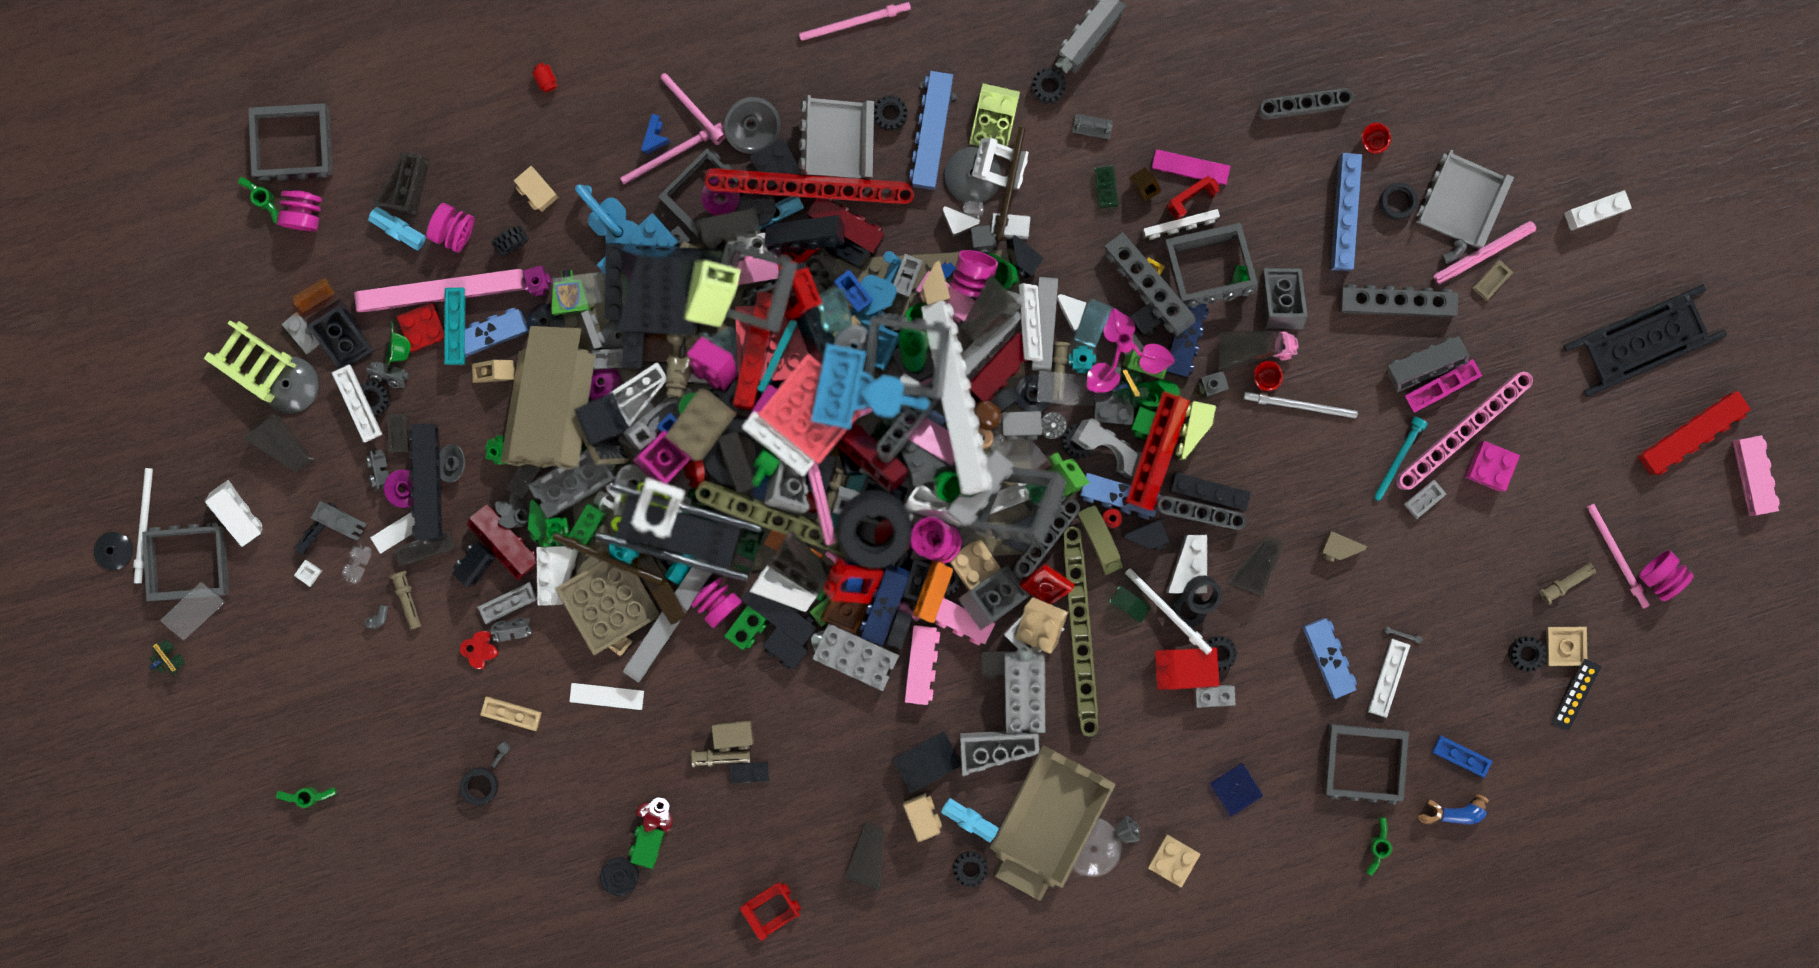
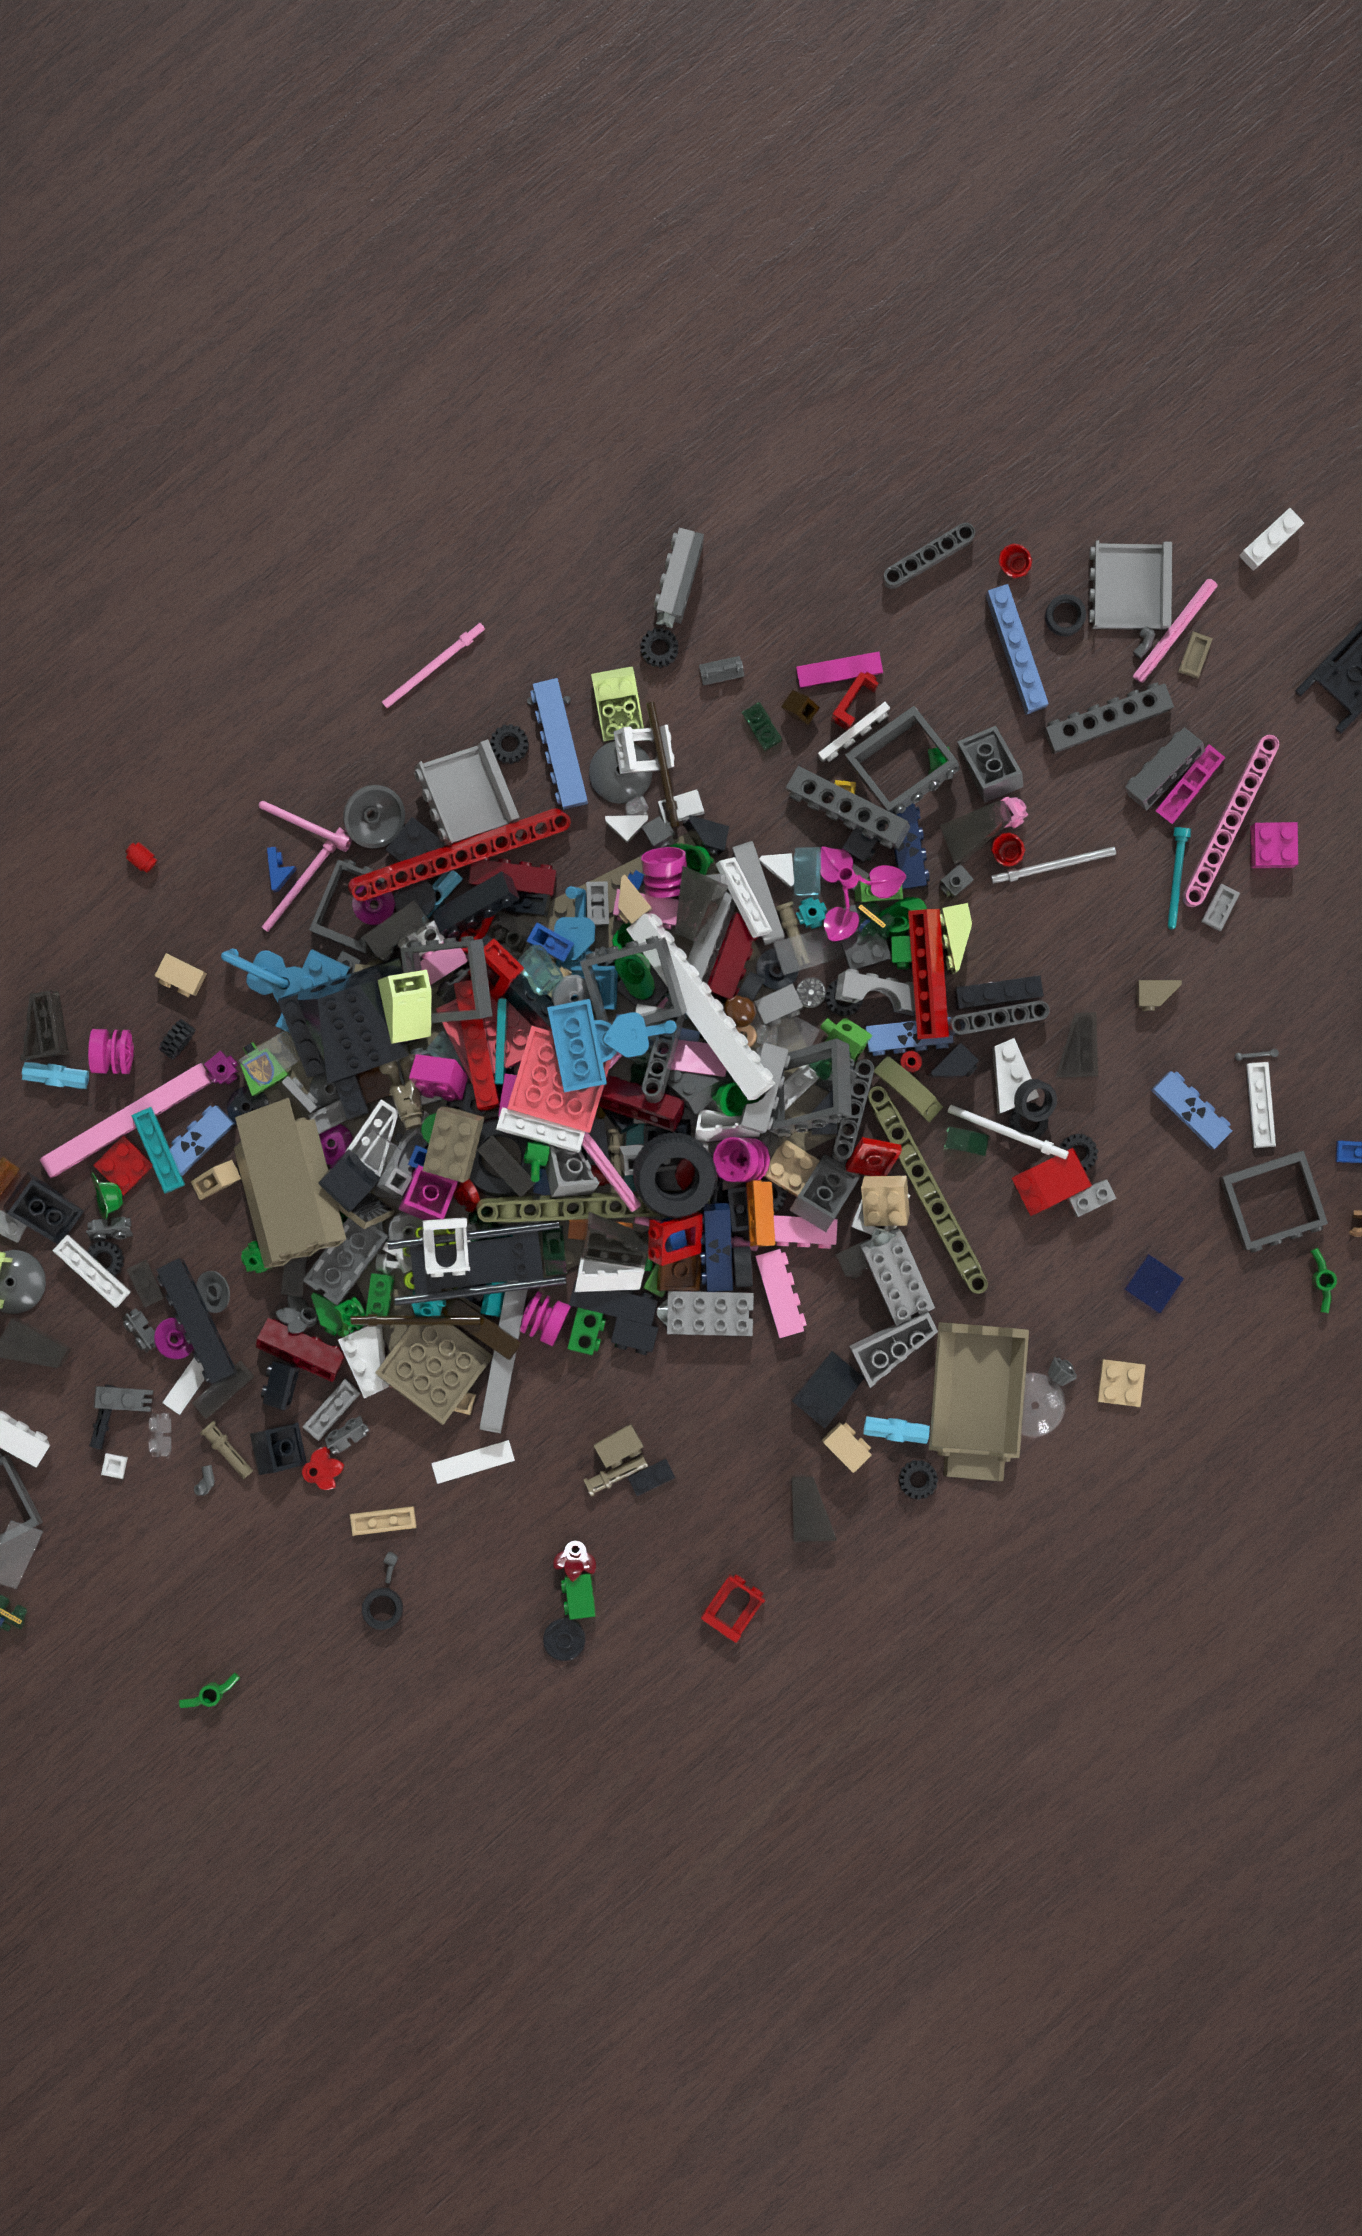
camera: 20 degrees left, 0 degrees up
(449, 617) = (278, 1449): none -> black slope

